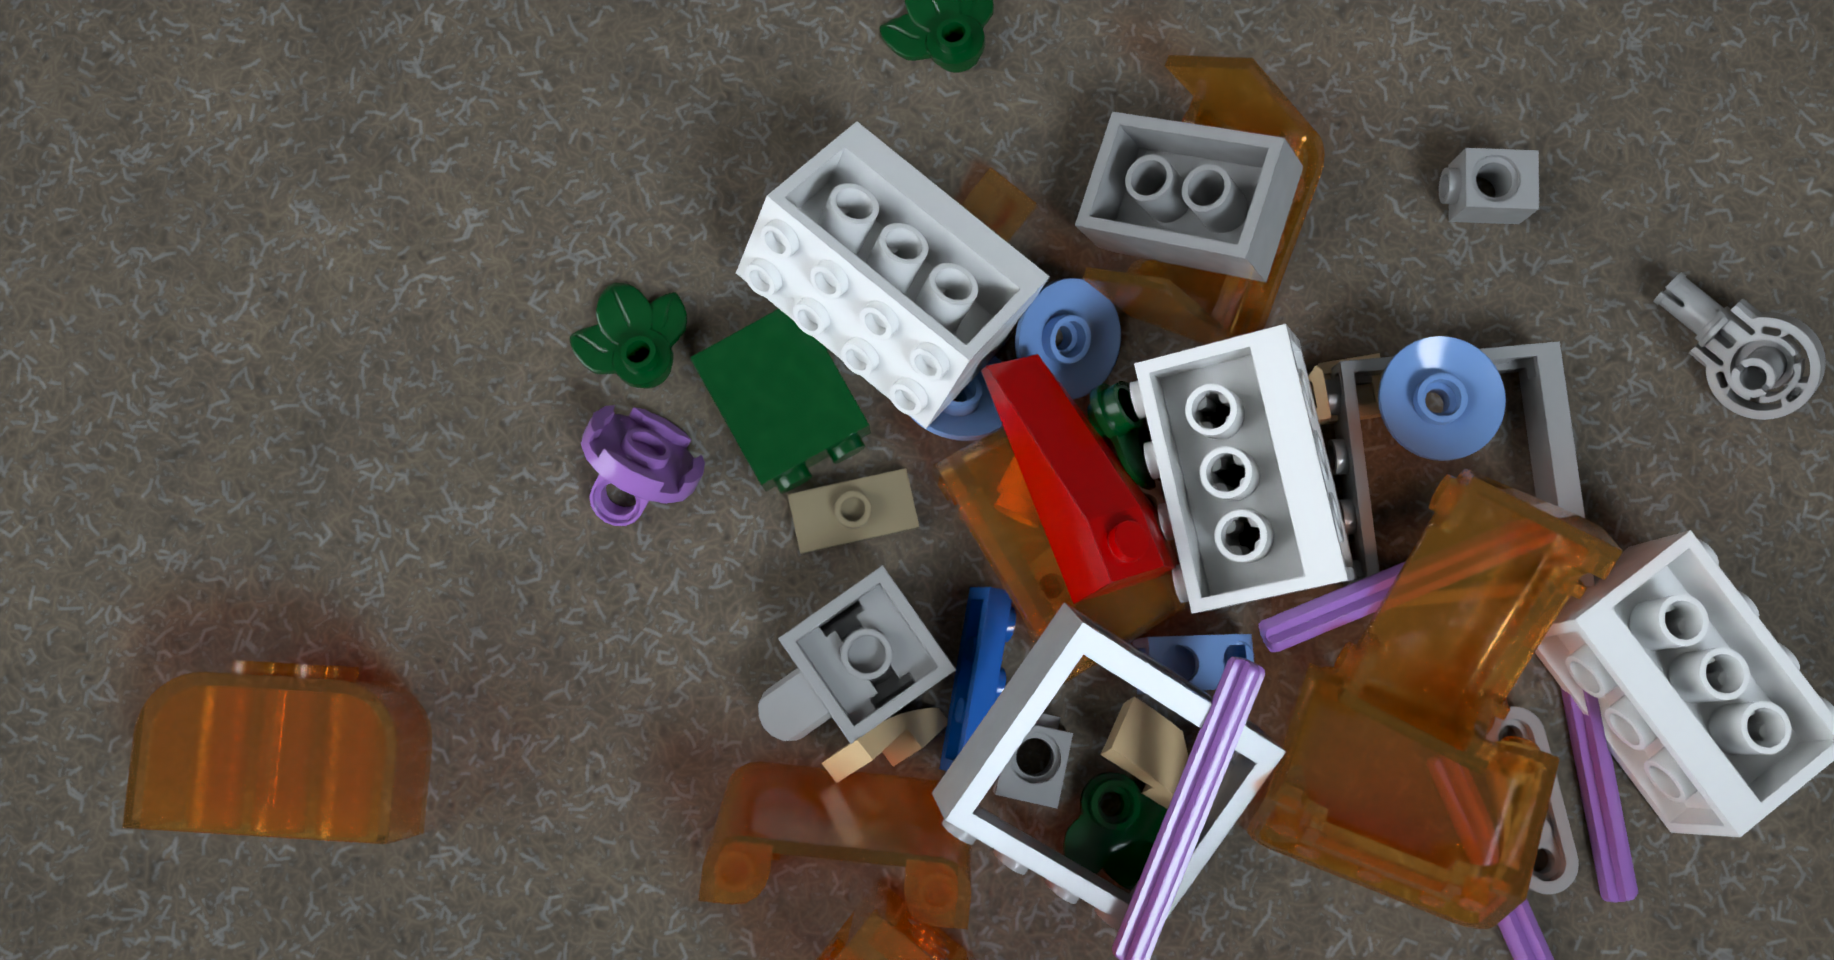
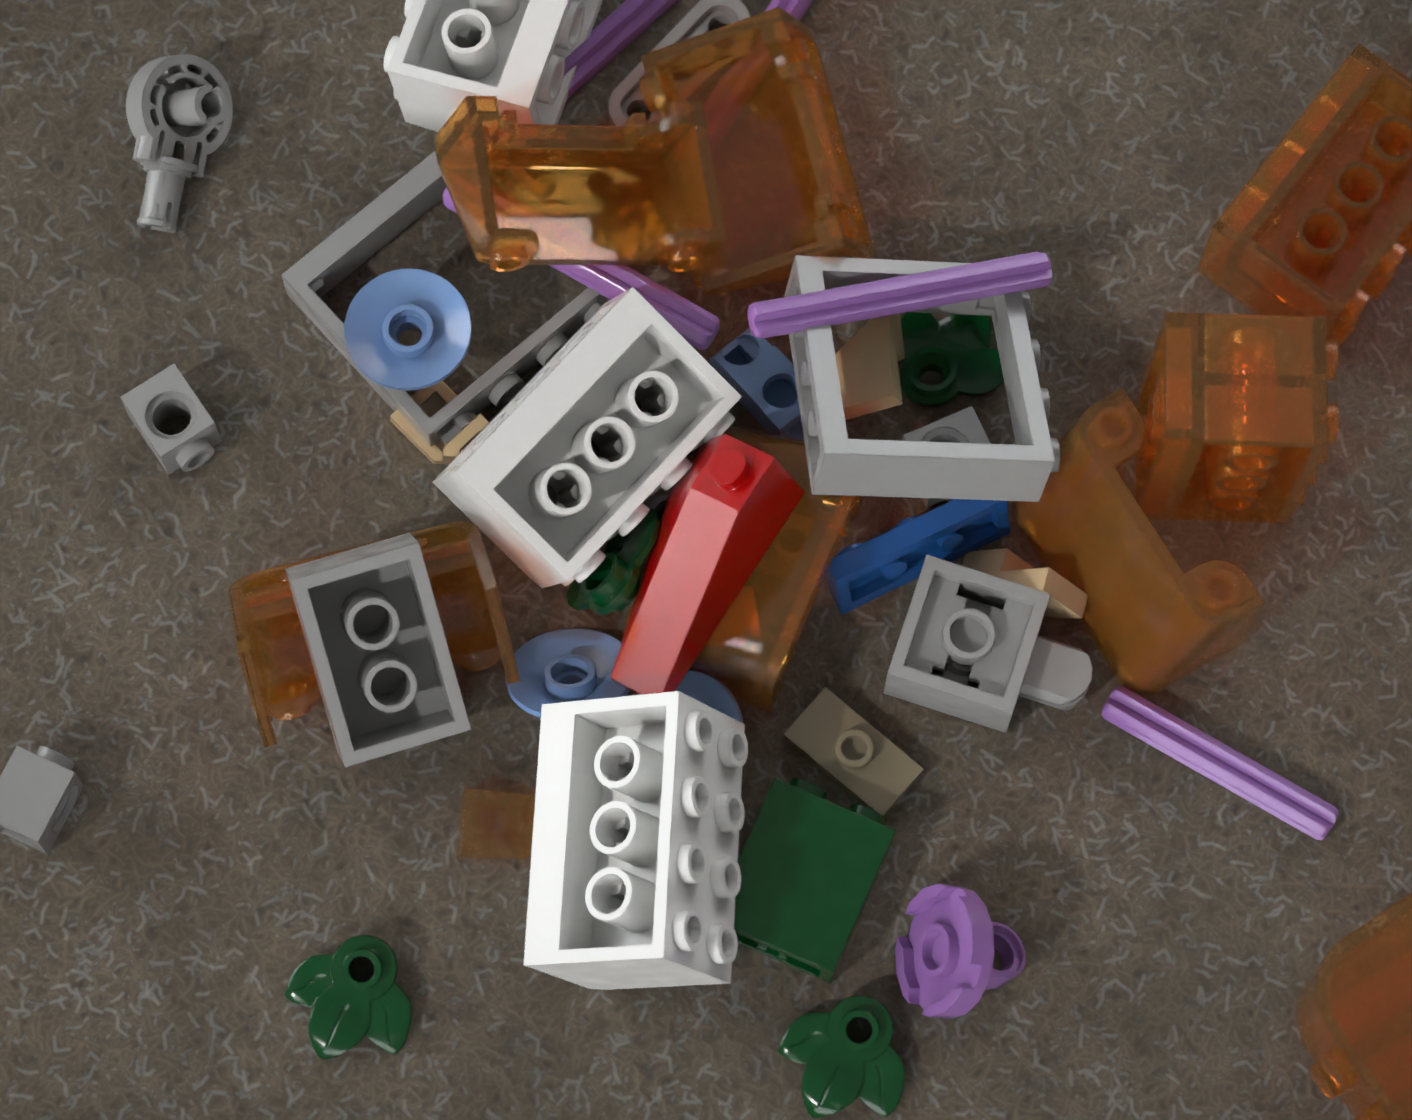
camera: 125 degrees left, 10 degrees down
(635, 787) = (1220, 763): none -> medium lavender axle

